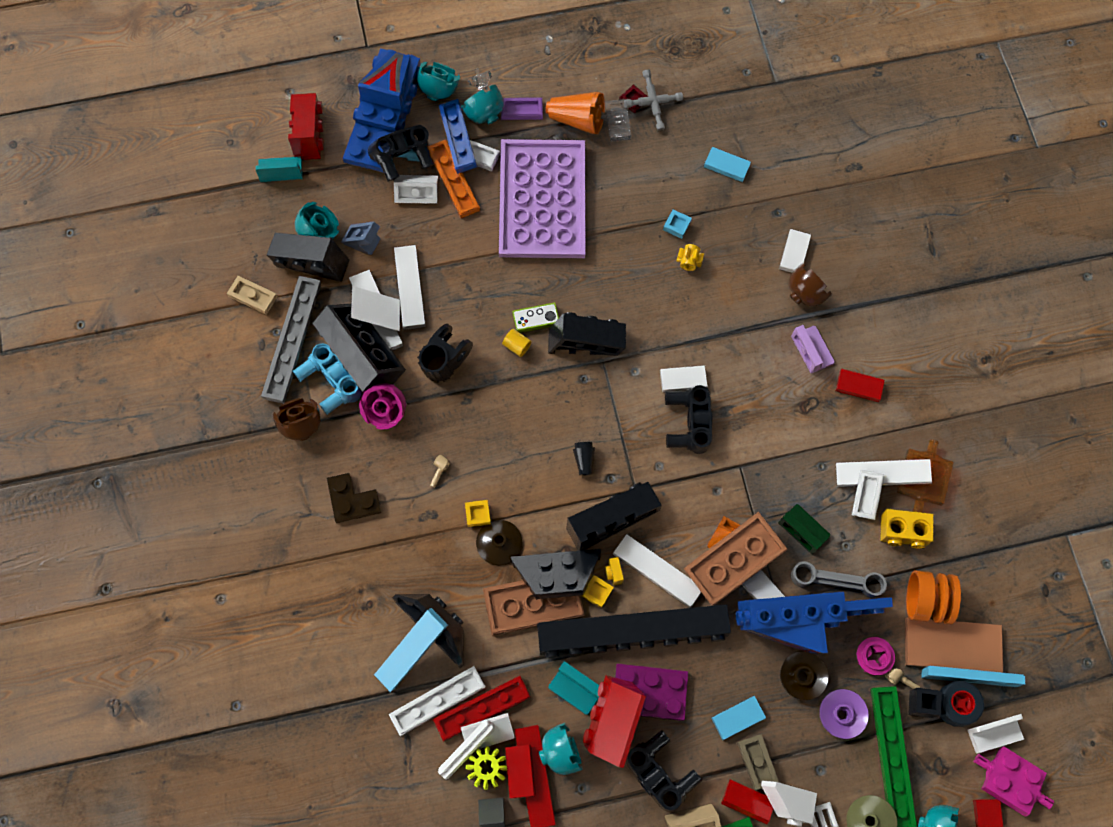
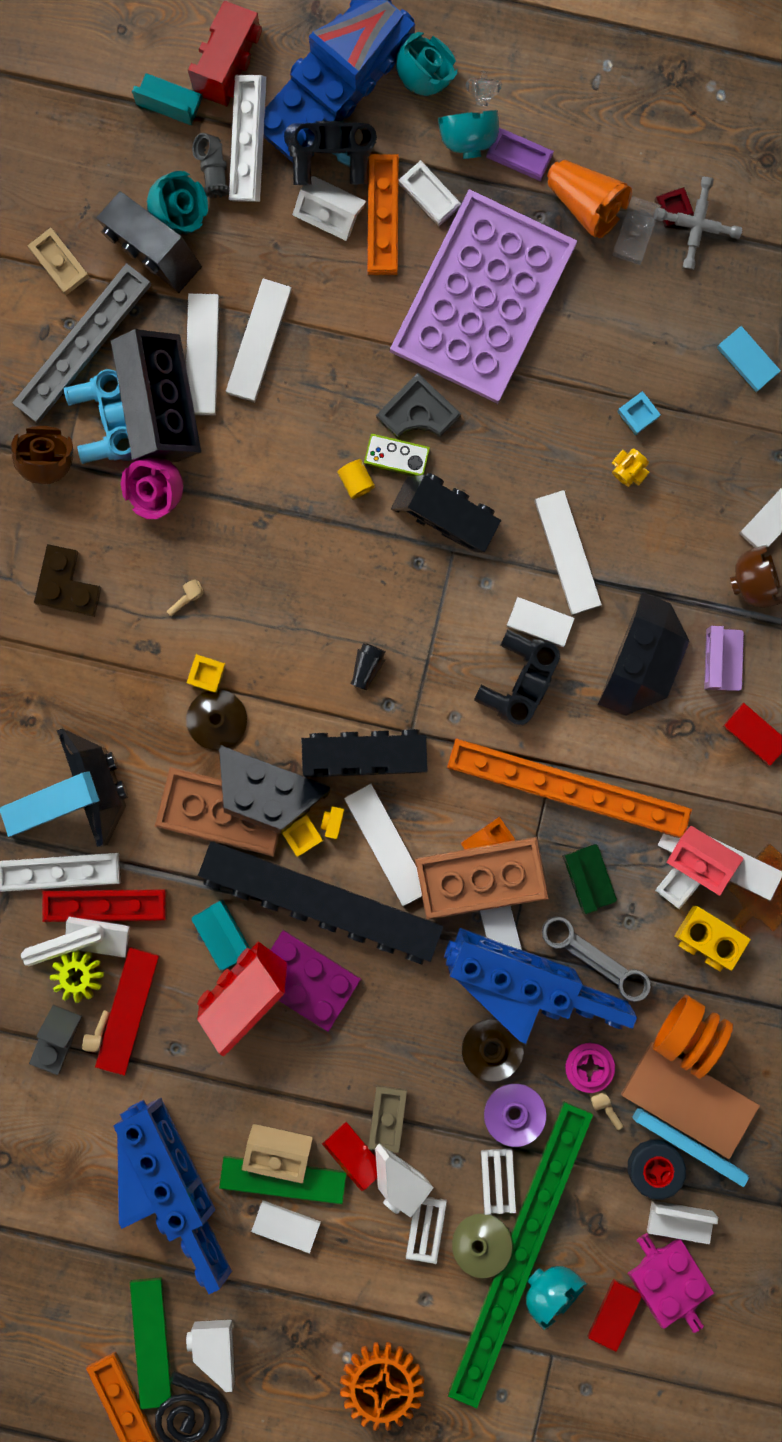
camera: 30 degrees right, 15 degrees up
(327, 194) = (211, 164): none -> dark grey connector
(344, 168) = (247, 138): none -> white tile
(362, 237) = (229, 245): sand blue slope -> none
(375, 308) = (200, 353): white sticker -> none
(438, 347) = (264, 462): black piece -> none
(457, 136) = (415, 158): blue tile -> none
(520, 771) = (112, 999): red tile -> none
(520, 812) = (93, 1042): none -> tan hand
(534, 283) = (418, 407): none -> dark grey tile
(560, 751) = (168, 999): teal cylinder -> none
(655, 779) = (260, 1081): black piece -> none
(678, 328) = (567, 552): none -> white tile
(738, 717) = (392, 1059): medium azure tile -> none
(759, 475) = (569, 788): none -> orange tile
(764, 370) = (646, 658): none -> black wedge
(868, 788) = (499, 1208): none -> white tile
(875, 476) = (705, 860): none -> coral panel
(925, 702) = (614, 1150): black brick -> none

